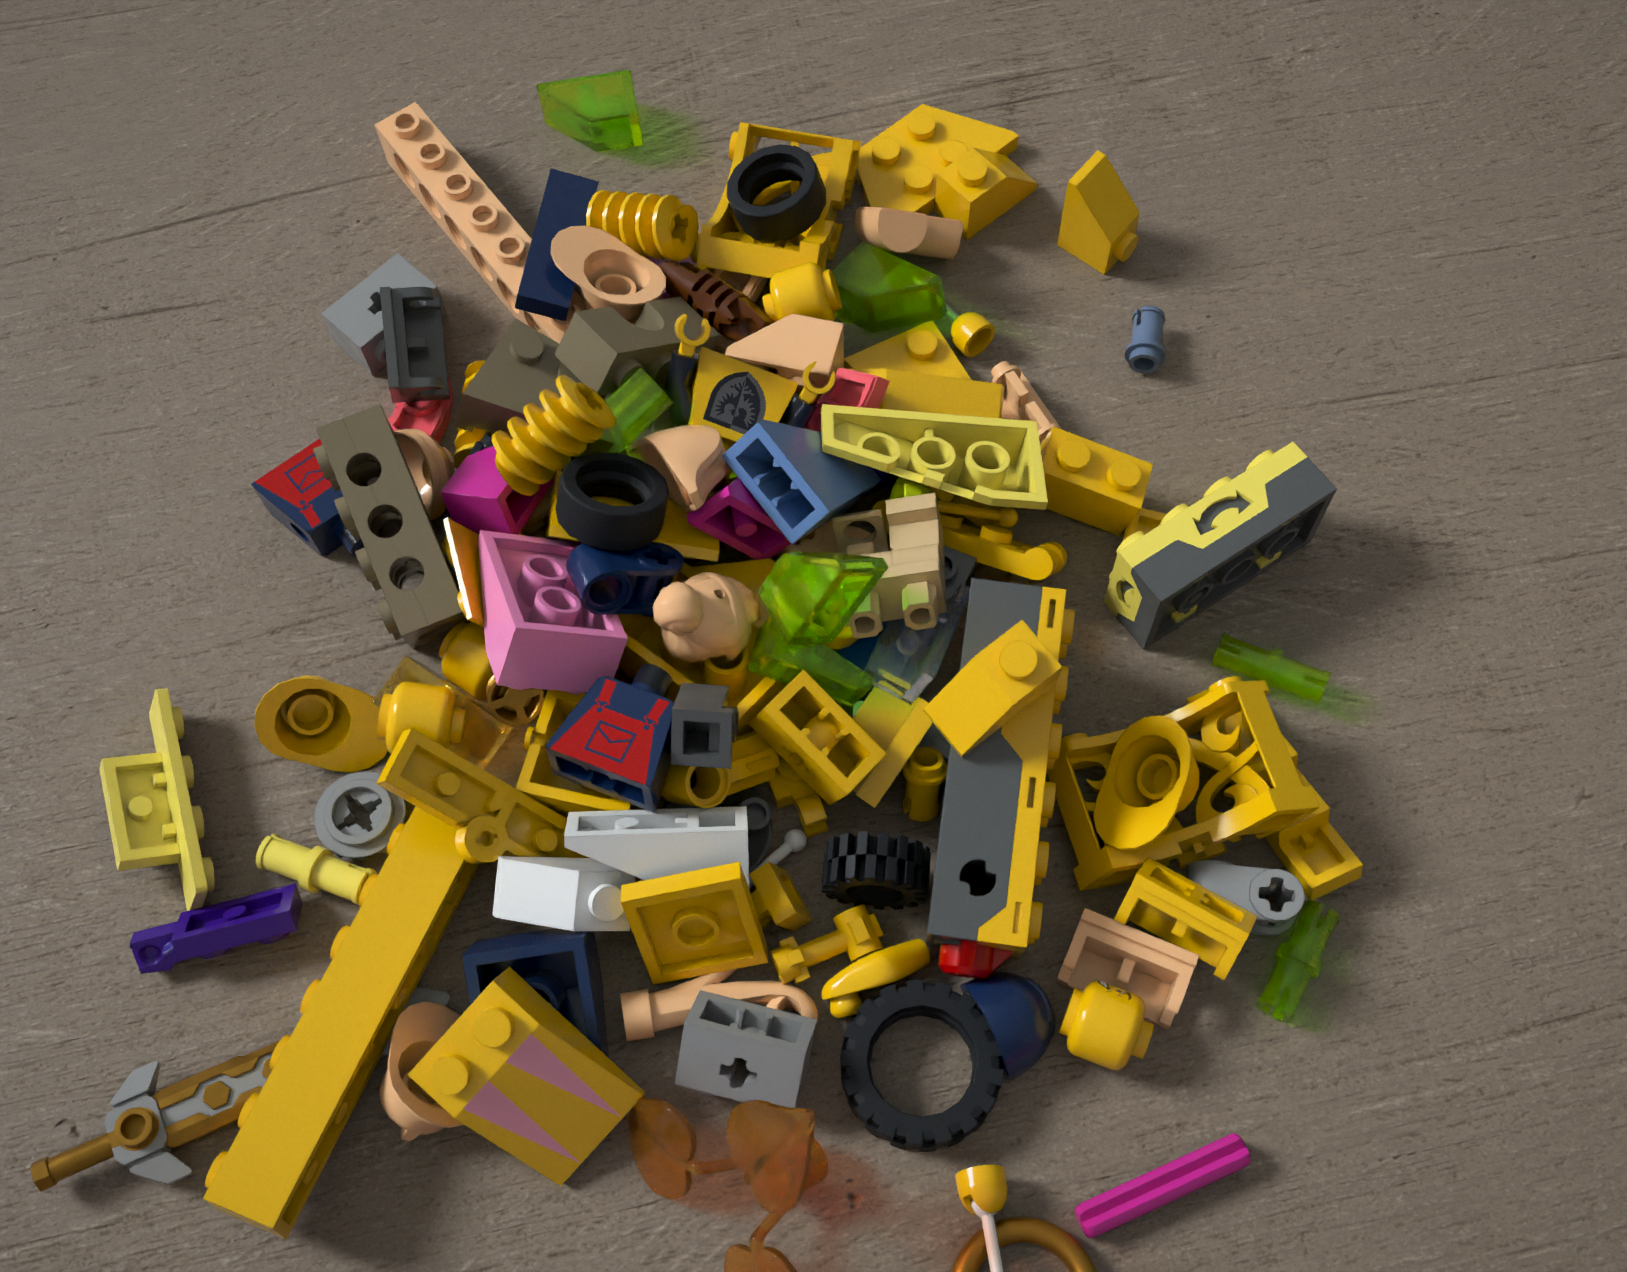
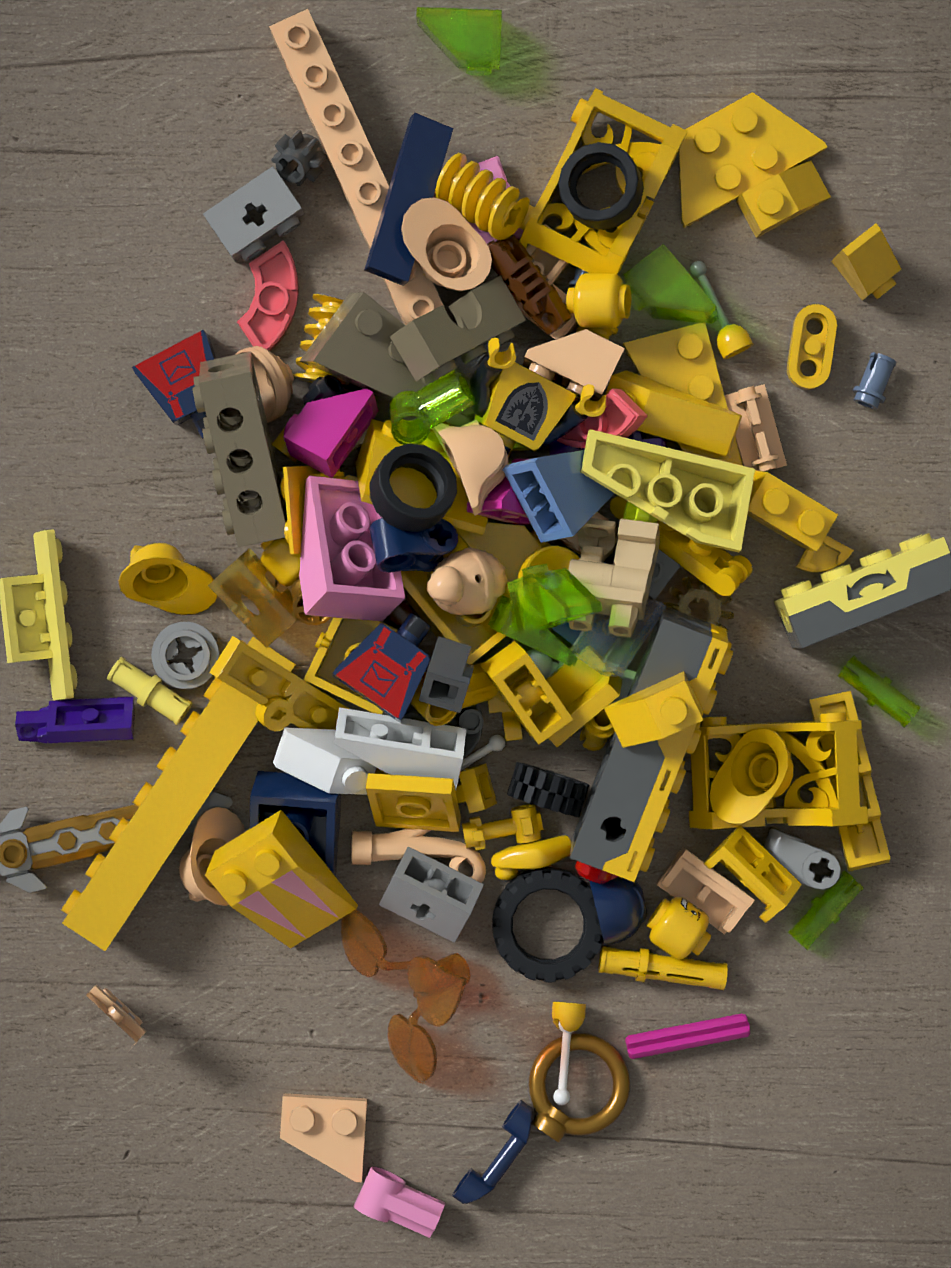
camera: 10 degrees right, 25 degrees up
(414, 344) = (276, 267): dark grey hinge -> none
(425, 709) = (244, 617): yellow head -> none
(430, 248) = (299, 158): none -> dark grey gear
(551, 434) = (377, 428): yellow piece -> none
(909, 232) = (701, 238): light nougat brick -> none
(1064, 324) = (812, 348): none -> yellow plate
(1077, 1093) = (664, 968): none -> yellow pin

